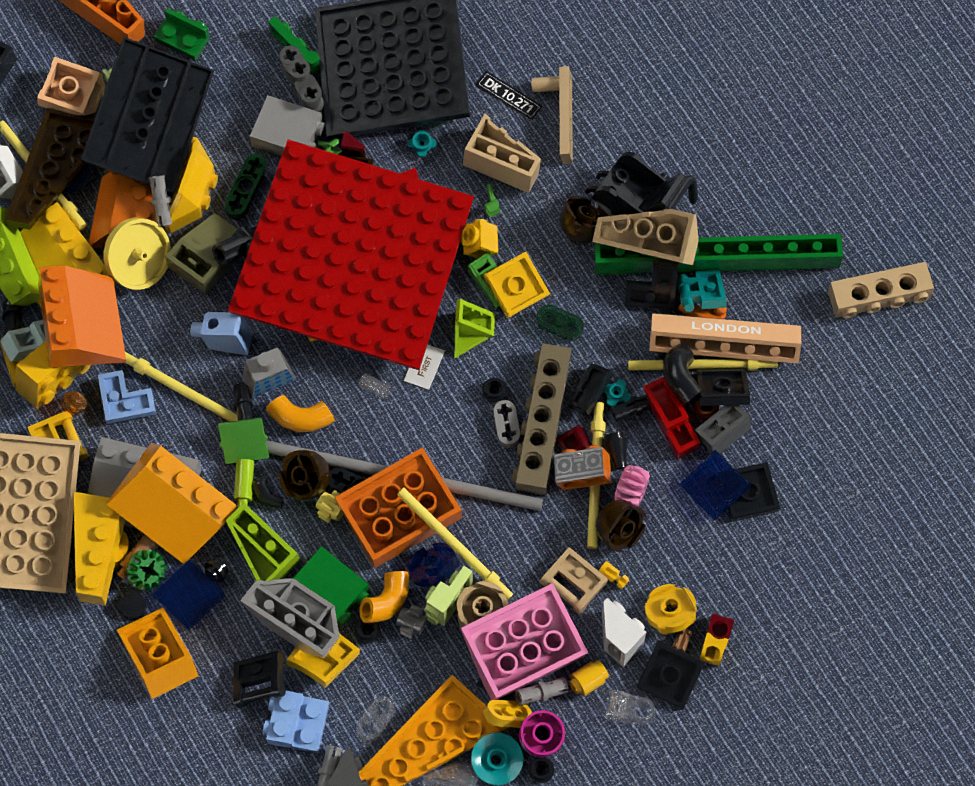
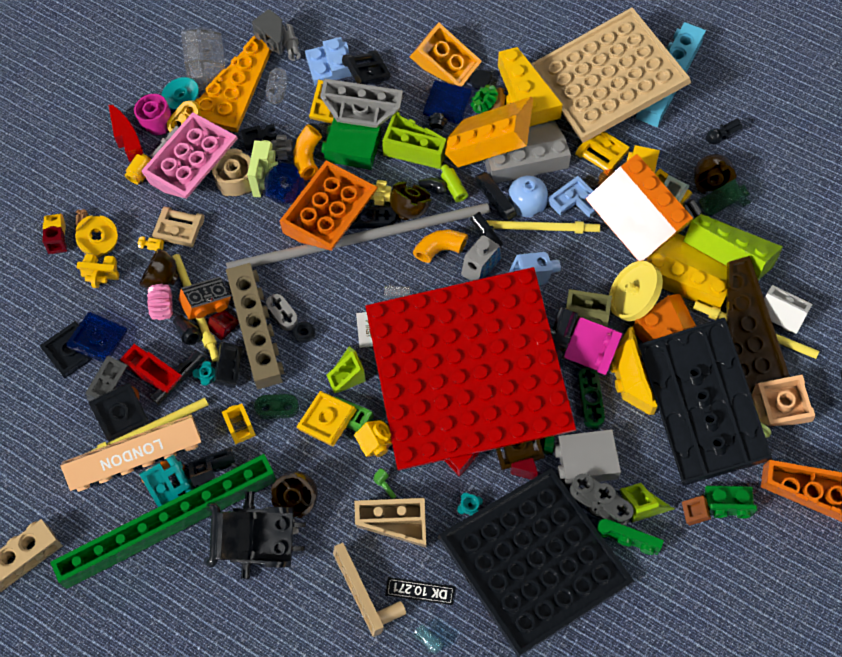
camera: 155 degrees right, 5 degrees down
(160, 200) = (643, 330): light grey pin -> none
(173, 428) = (528, 196): none -> light blue cylinder
(208, 443) = (495, 196): none -> black beam
(209, 216) = (593, 345): none -> dark pink bracket
(219, 39) = (696, 510): none -> dark orange plate
(243, 440) = (470, 205): bright green piece -> none
(260, 67) = (643, 502): none -> lime slope
(330, 146) = (539, 456): bright green hand -> none
(435, 655) = (255, 133): none -> black plate
(456, 545) = (241, 198): light yellow bar -> none
(522, 44) = (428, 639): none -> clear light blue pin
(585, 733) = (125, 133): none -> red slope
(606, 323) = (238, 423): none -> yellow window
(621, 634) = (123, 197): white slope -> none
(627, 708) = (100, 162): clear piece -> none
(661, 234) = (220, 484): tan wedge -> none
(670, 674) = (79, 196): black tile -> none
(677, 374) = (156, 393): black cylinder -> none
(687, 562) = (96, 272): none -> yellow hips

